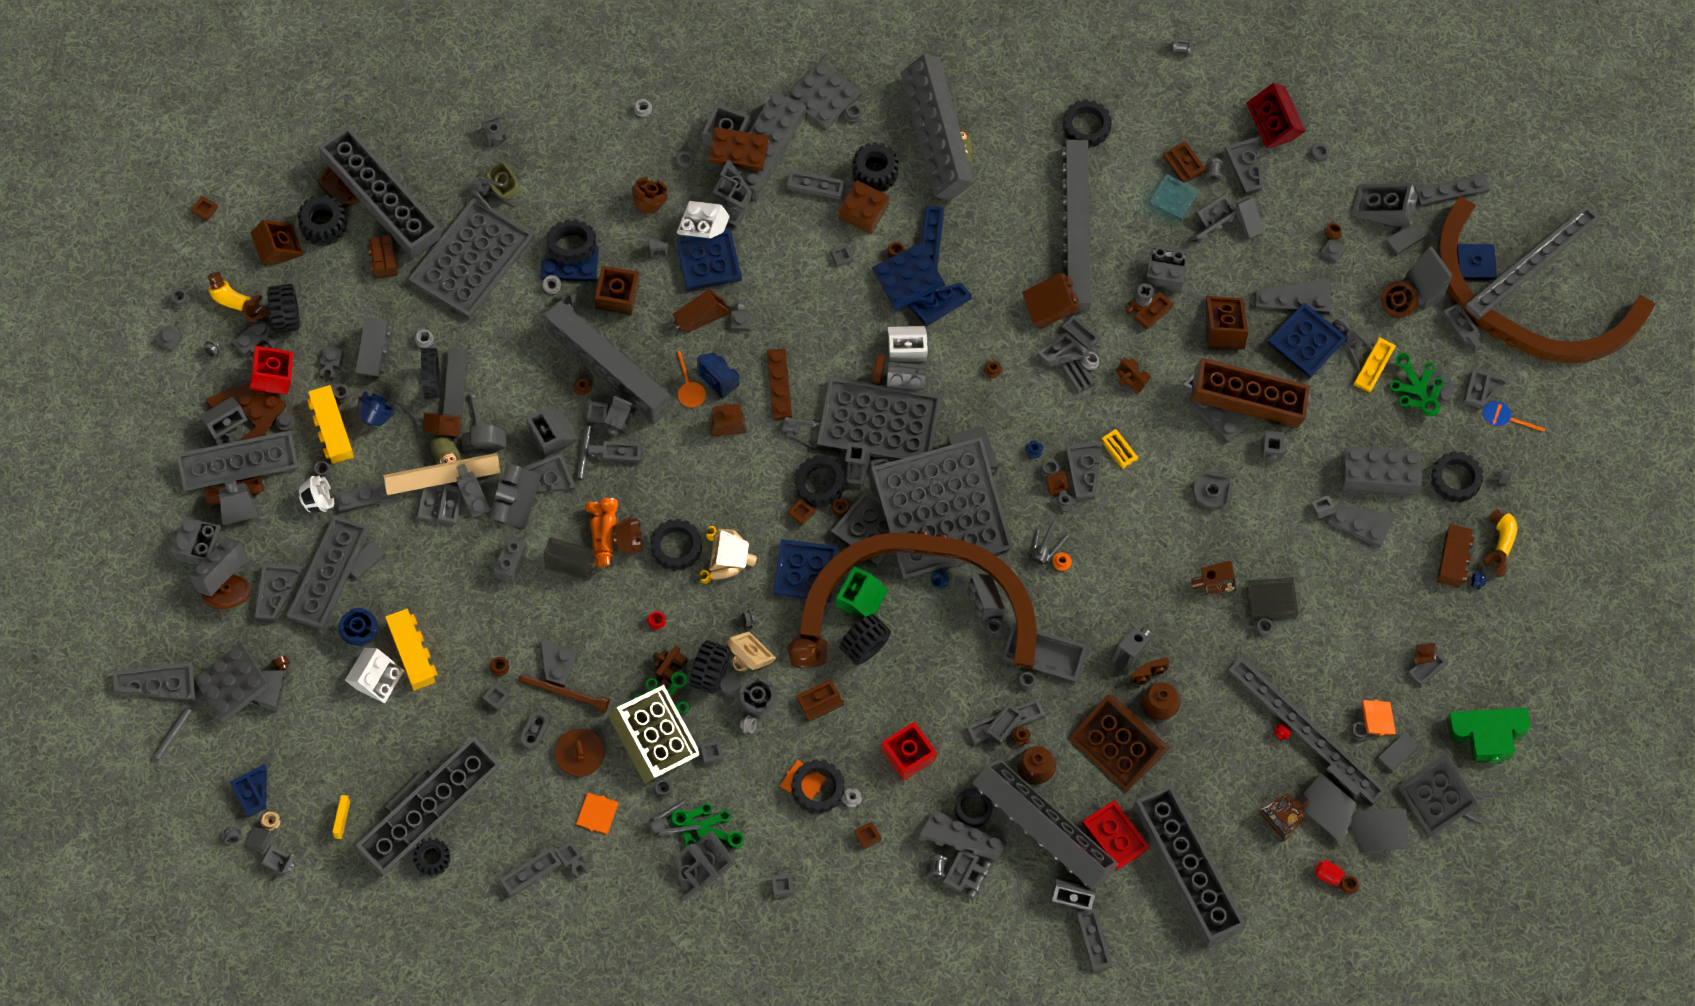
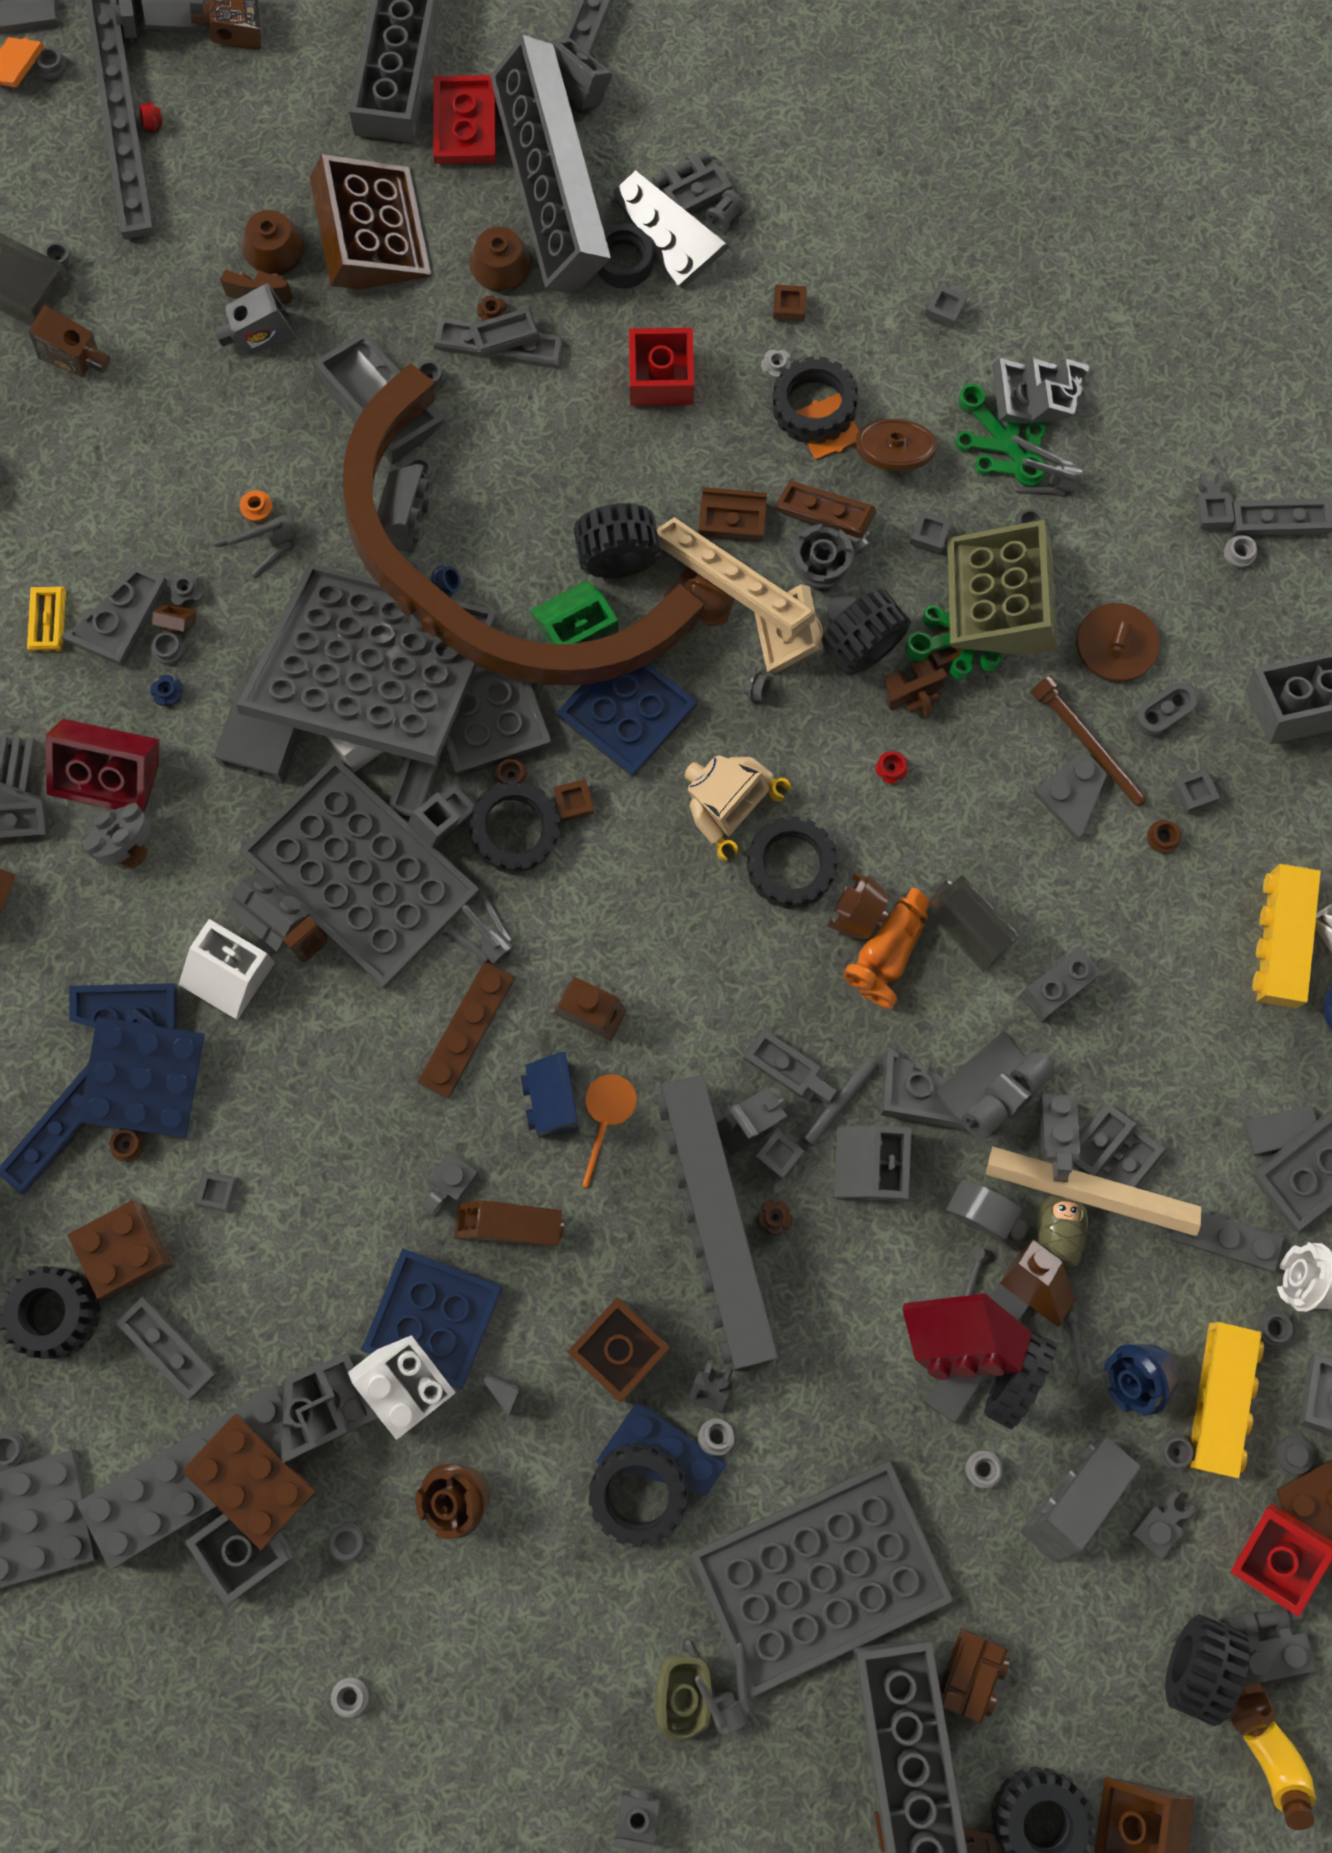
camera: 145 degrees left, 10 degrees up
(464, 370) = (965, 1337): none -> dark red slope
(542, 835) = (1244, 543): none -> light grey plate
(597, 813) = (1139, 548): orange piece -> none
(759, 785) = (896, 444): none -> reddish brown shield
(773, 727) = (826, 508): none -> reddish brown tile
(795, 656) = (734, 577): none -> tan tile
(1010, 368) = (117, 833): none -> dark grey plate
(1036, 397) = (100, 765): none -> dark red slope

